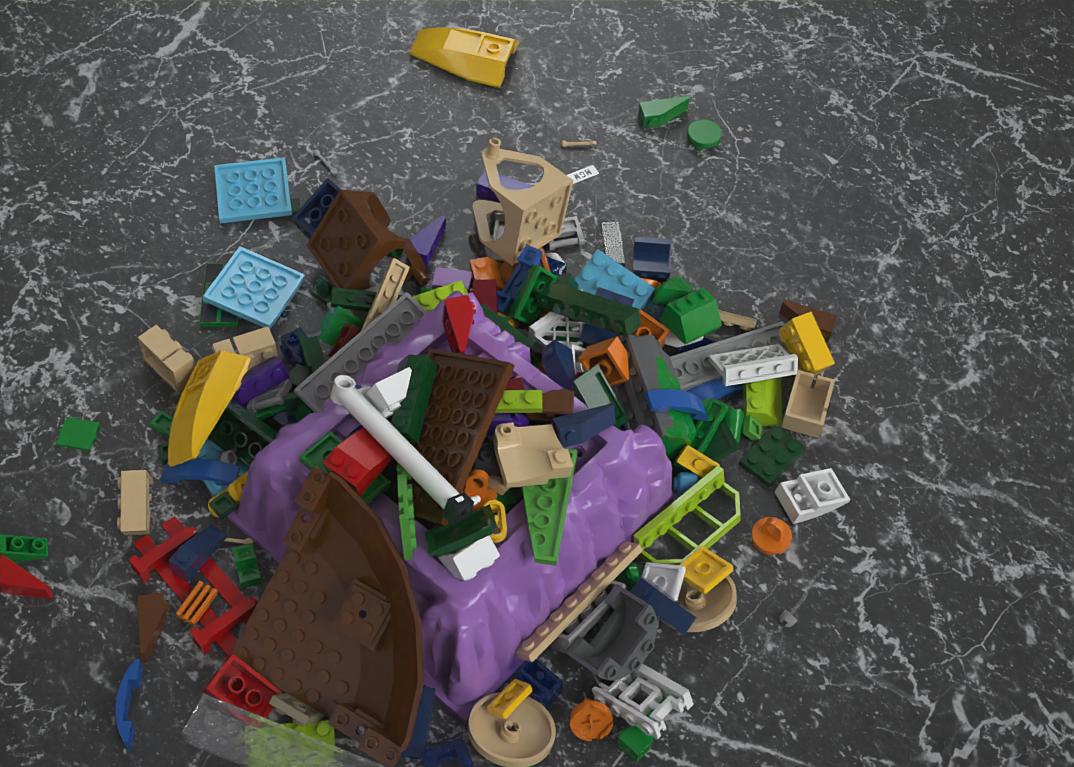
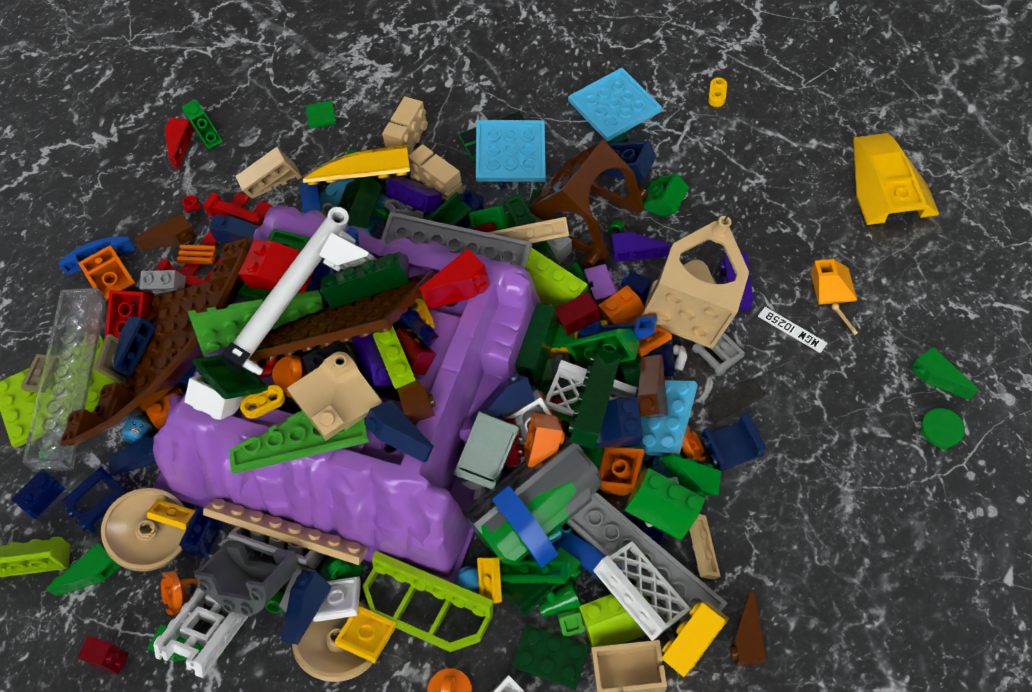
camera: 75 degrees right, 5 degrees up
(119, 587) = (191, 203): none -> red plate
(165, 699) = (106, 272): none -> orange slope
(225, 636) = (161, 281): none -> light grey brick
(284, 679) = (132, 343): none -> dark blue slope
(292, 114) = (717, 92): none -> yellow plate
(389, 195) = (665, 194): none -> green slope
(463, 256) = (637, 283): none -> clear blue brick
(543, 134) = (832, 282): none -> light orange slope
(591, 274) = (652, 388): none -> reddish brown slope

